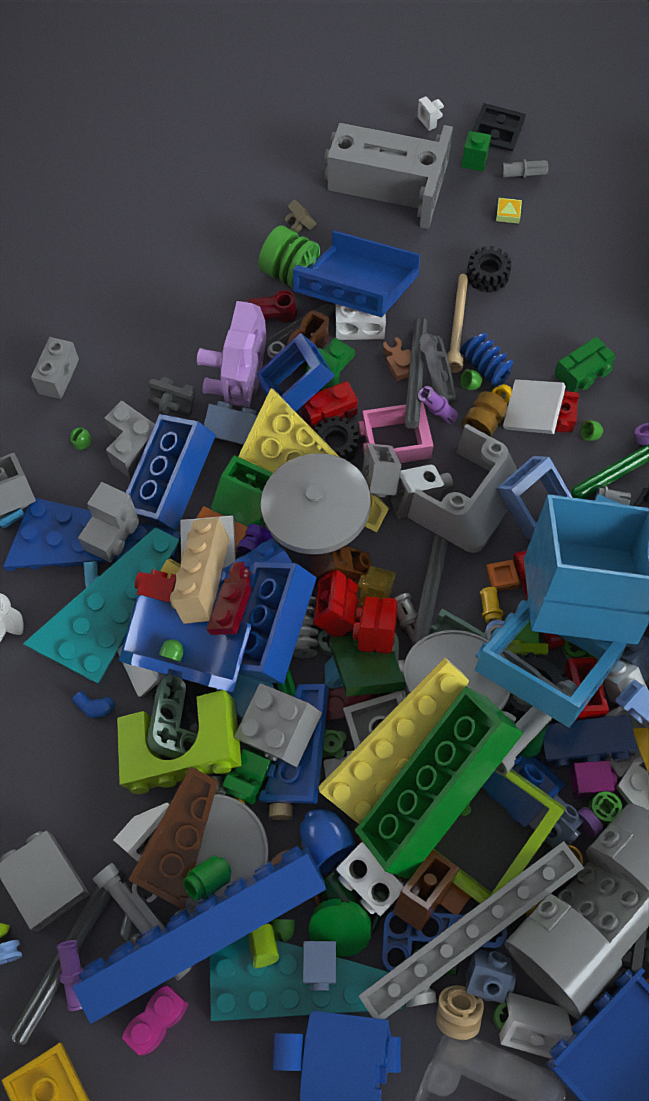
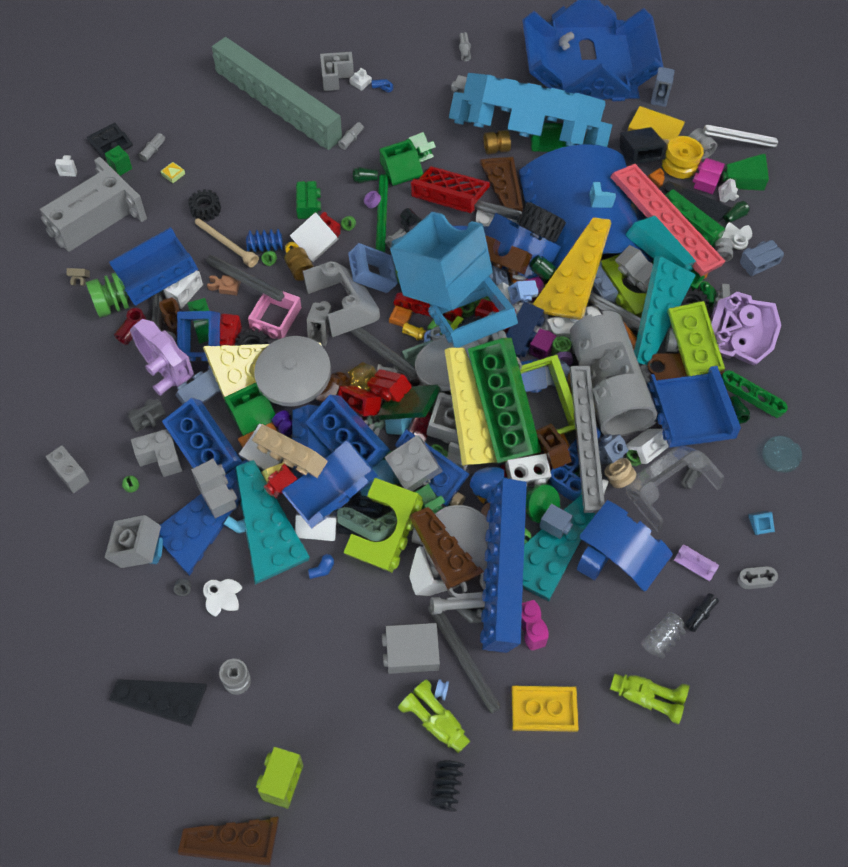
camera: 60 degrees left, 5 degrees down
(70, 969) = (479, 656): medium lavender pin -> none
(172, 650) = (327, 495): bright green hinge -> none
(207, 878) = (476, 546): green brick -> none
(231, 601) = (324, 444): dark red hinge -> none
(263, 946) = (531, 547): lime brick -> none
(381, 469) = (296, 325): light grey brick -> none
(437, 405) = (275, 279): medium lavender pin -> none
(438, 366) = (250, 266): flat silver hinge -> none

